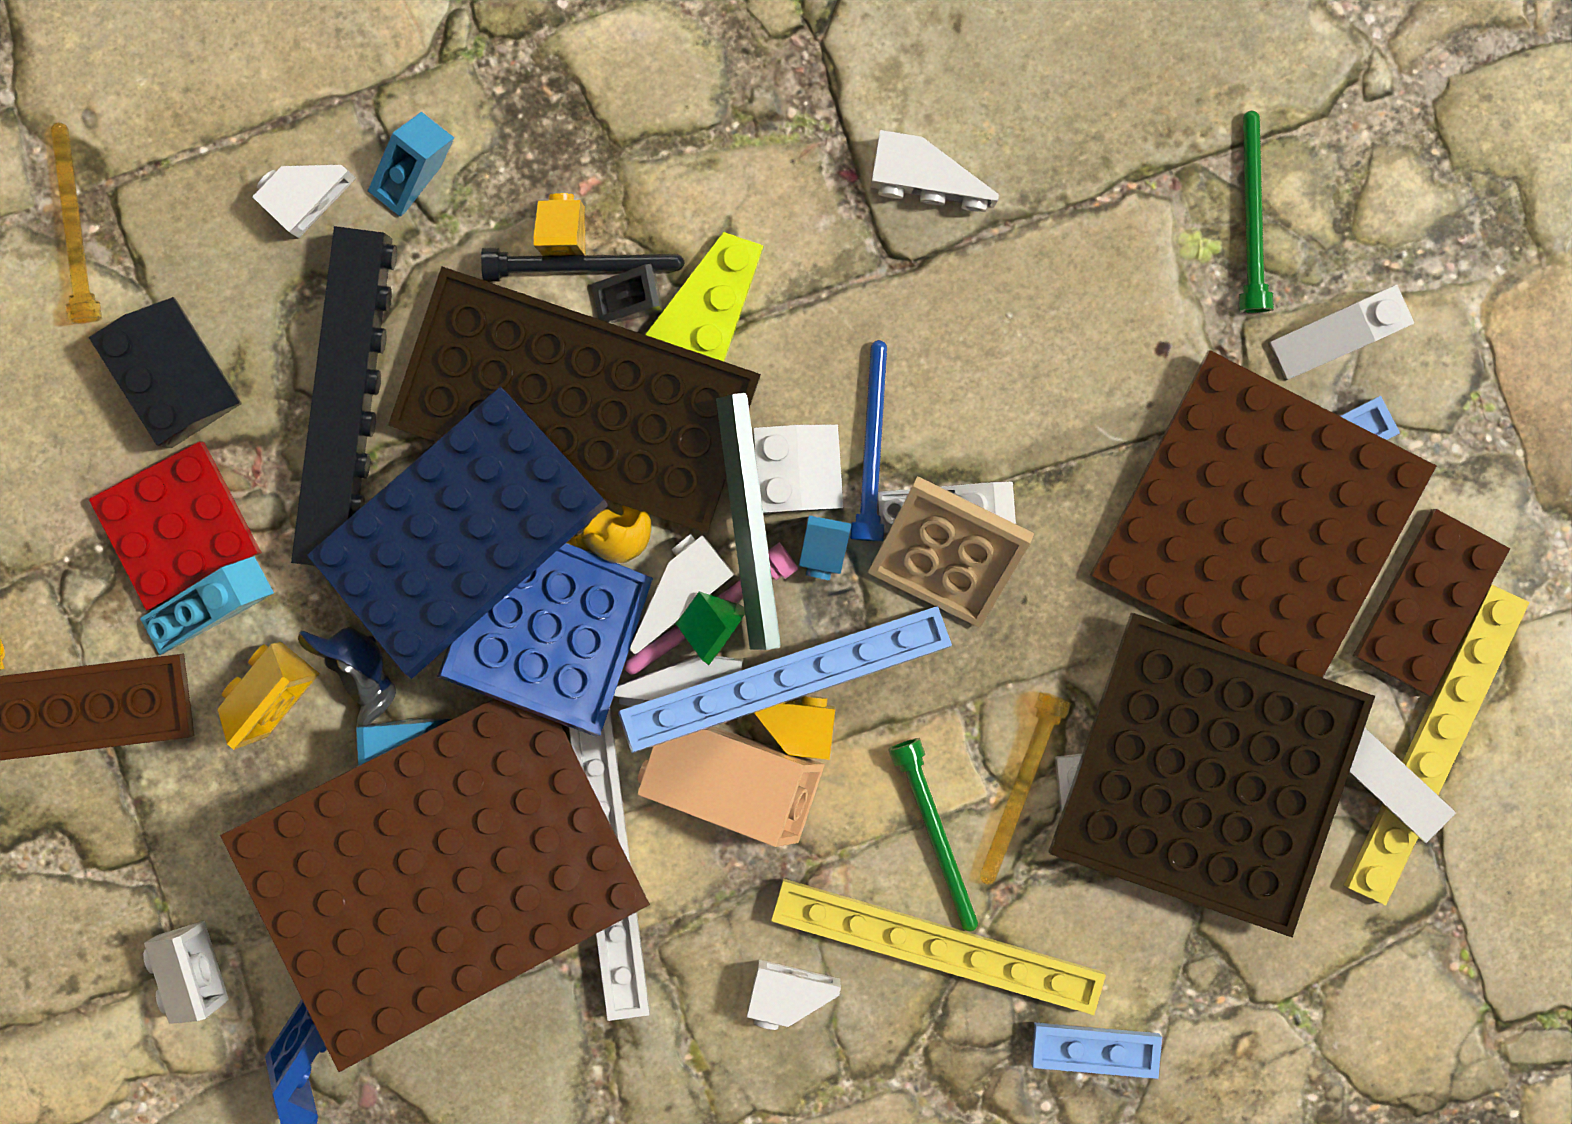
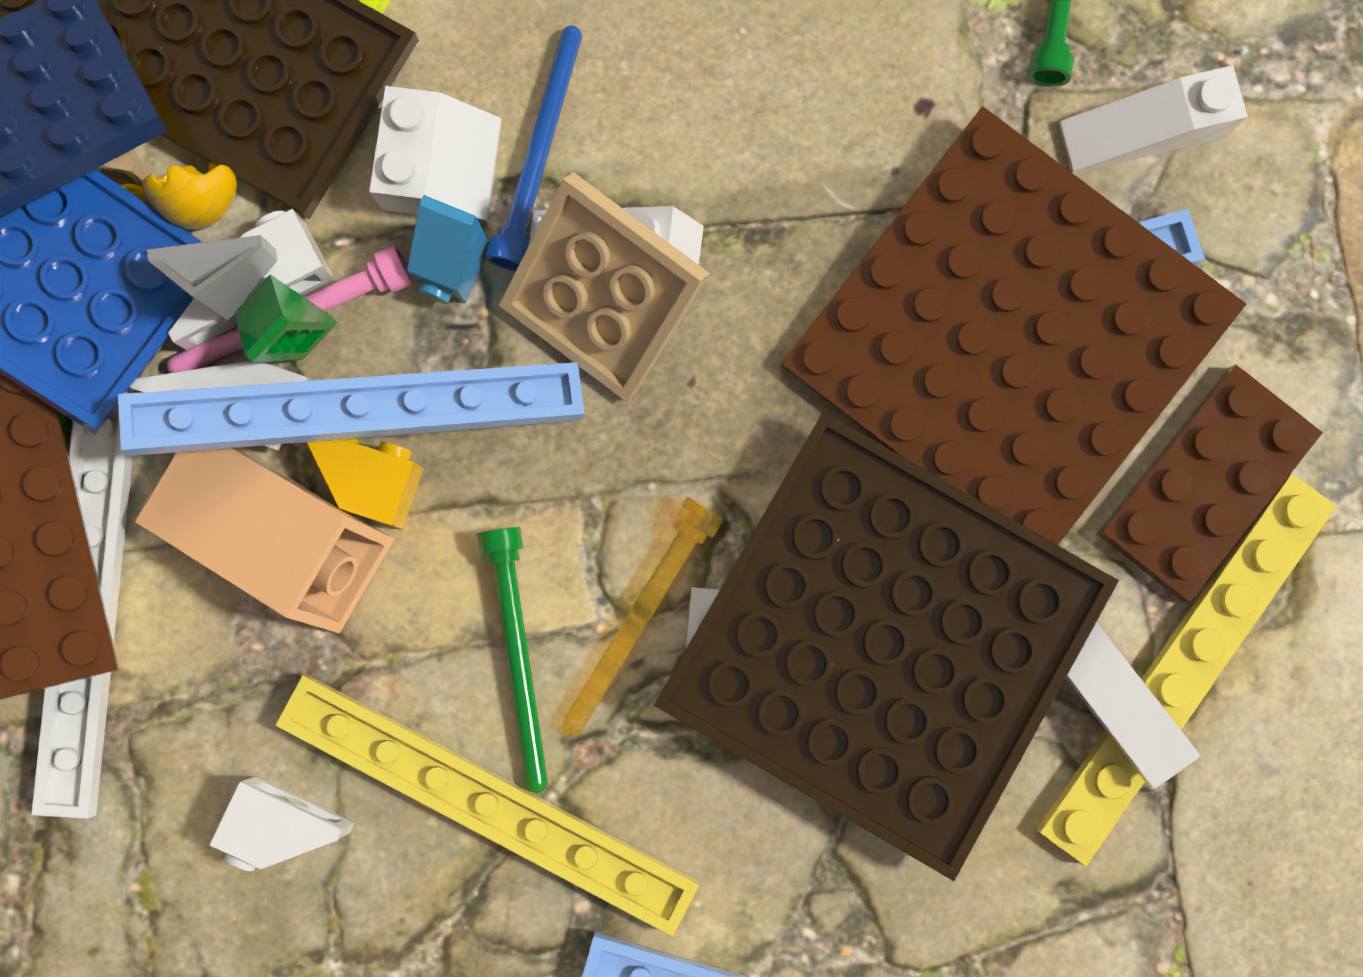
camera: 15 degrees right, 5 degrees down
(660, 602) = (218, 271): none -> light grey slope
(748, 522) = (354, 202): sand green tile -> none

